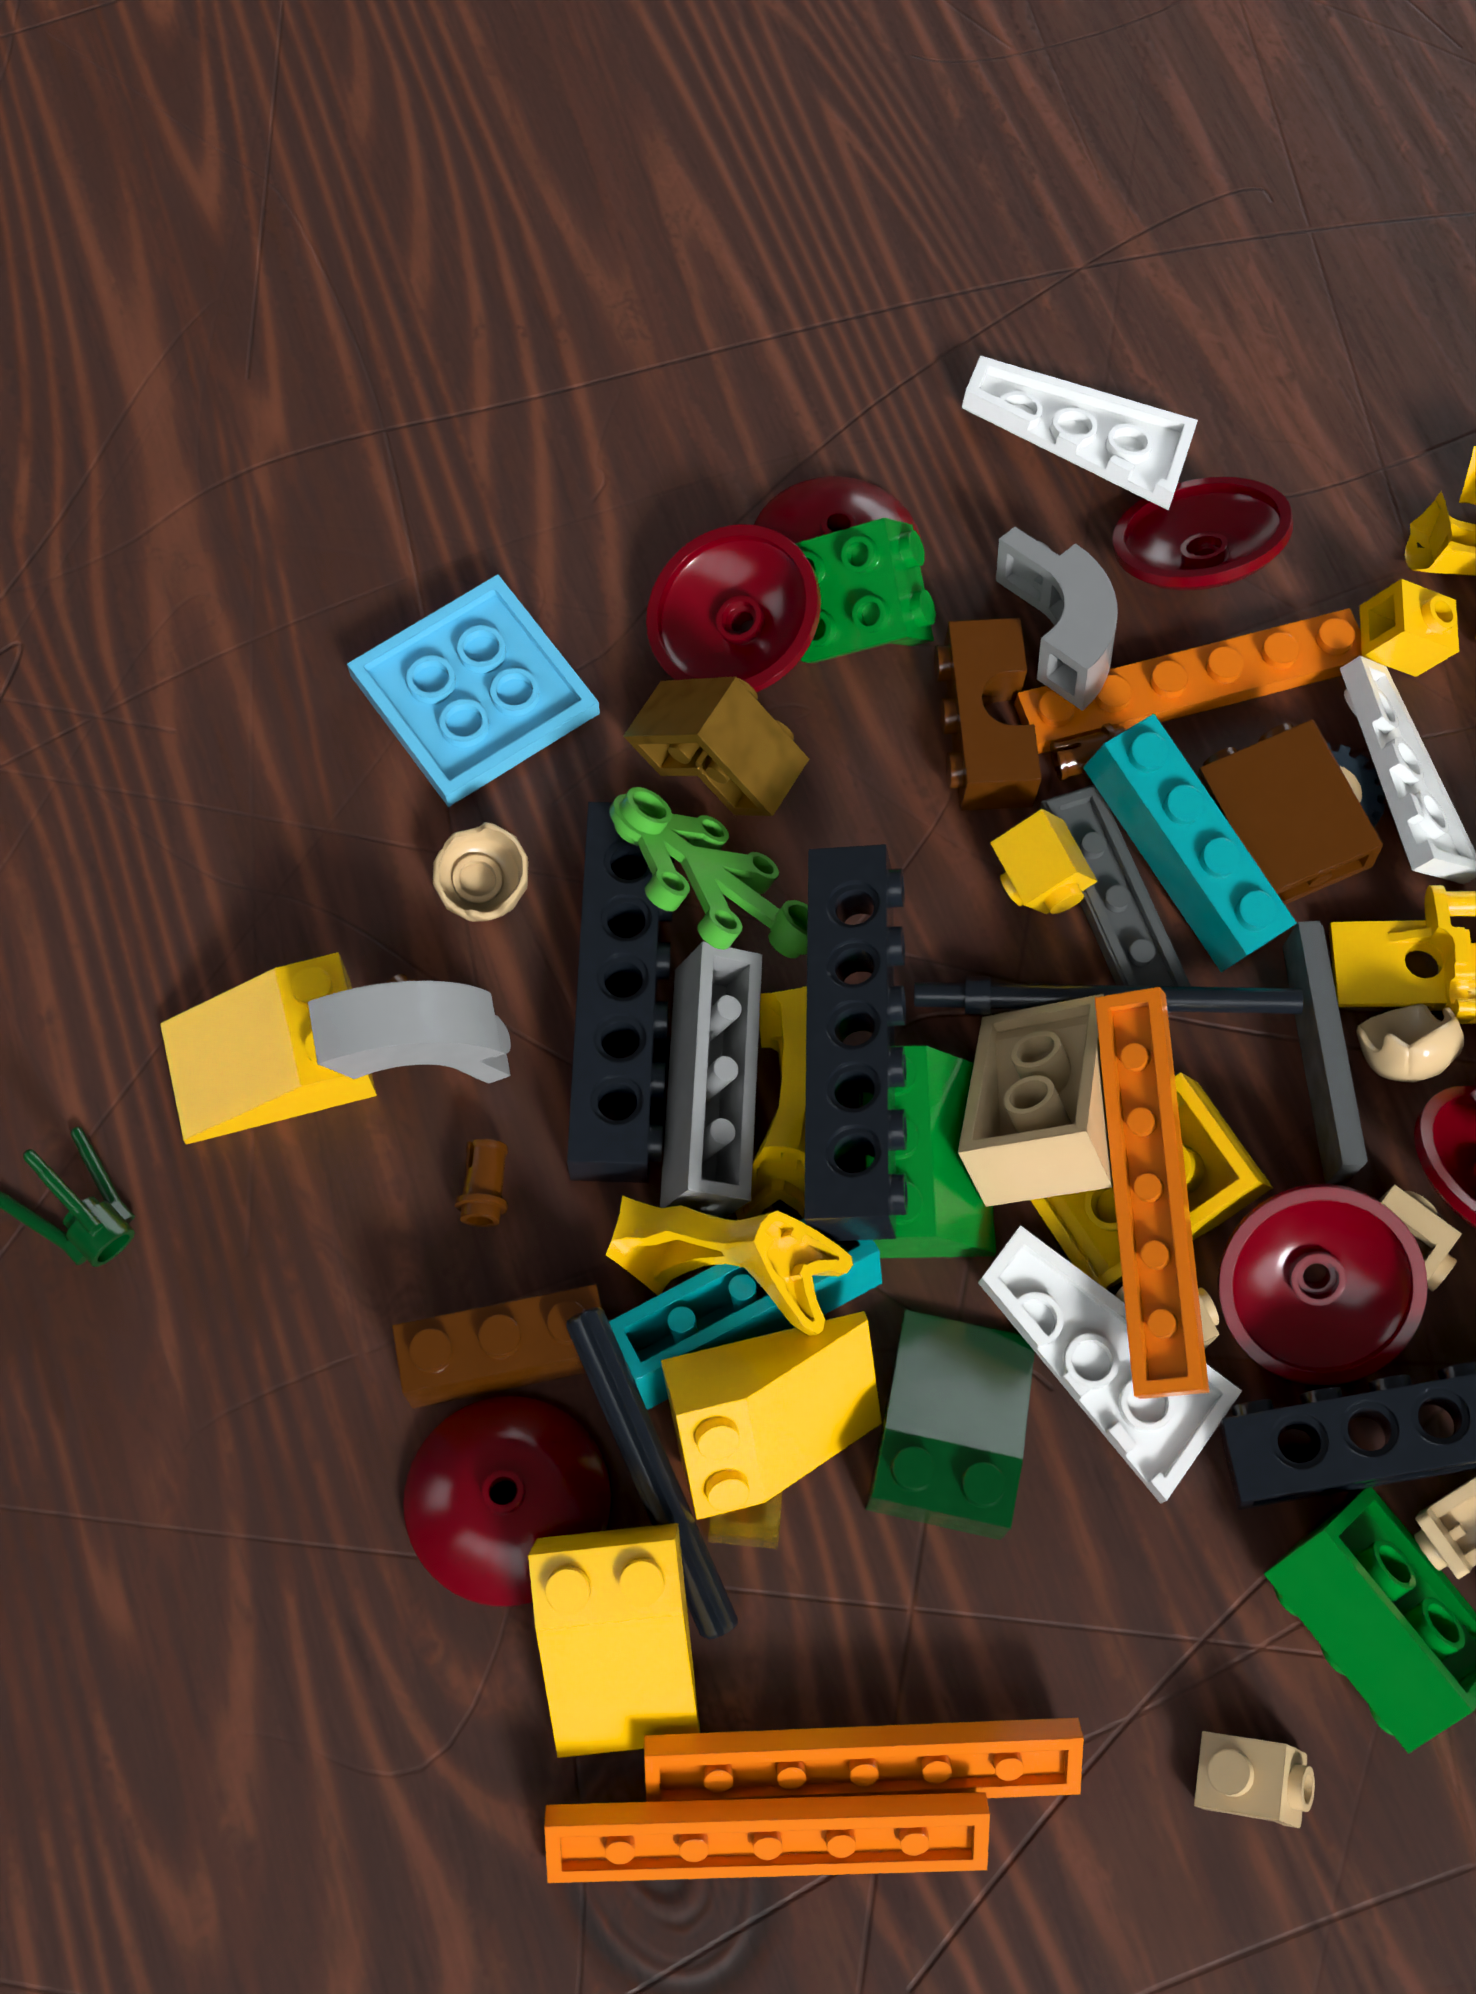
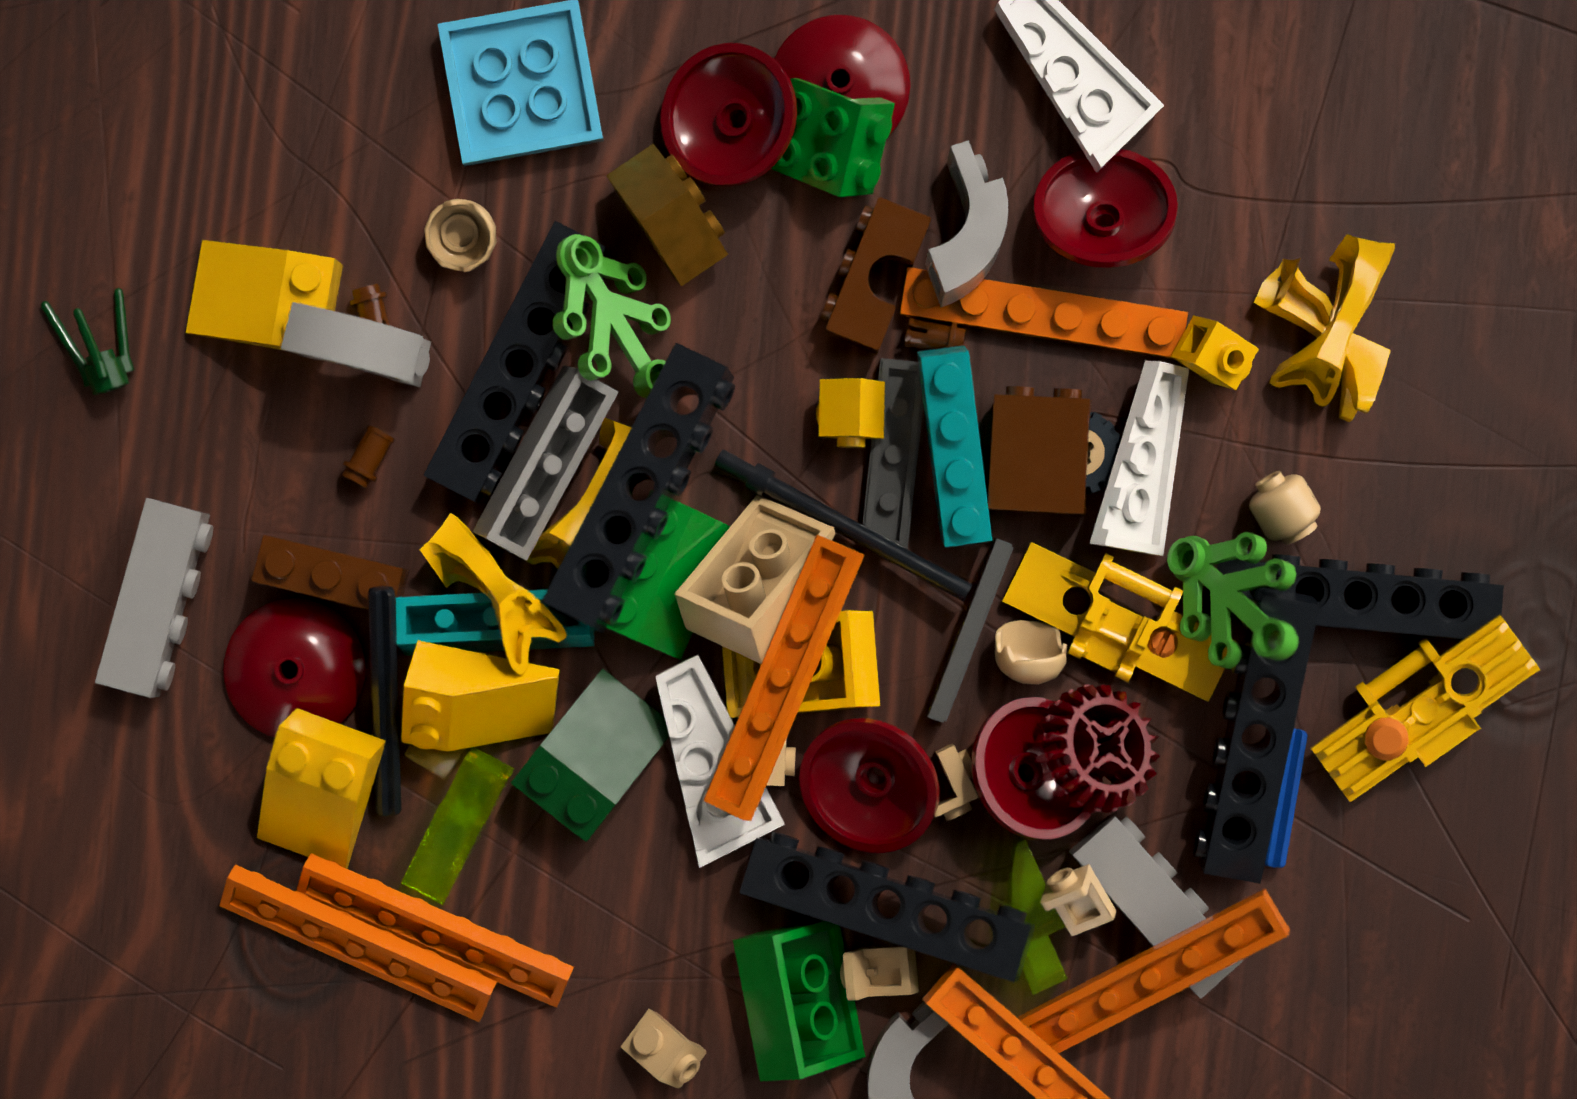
camera: 25 degrees right, 20 degrees up
(277, 1491) = (154, 598): none -> light grey brick
(823, 1605) = (457, 825): none -> clear neon green slope

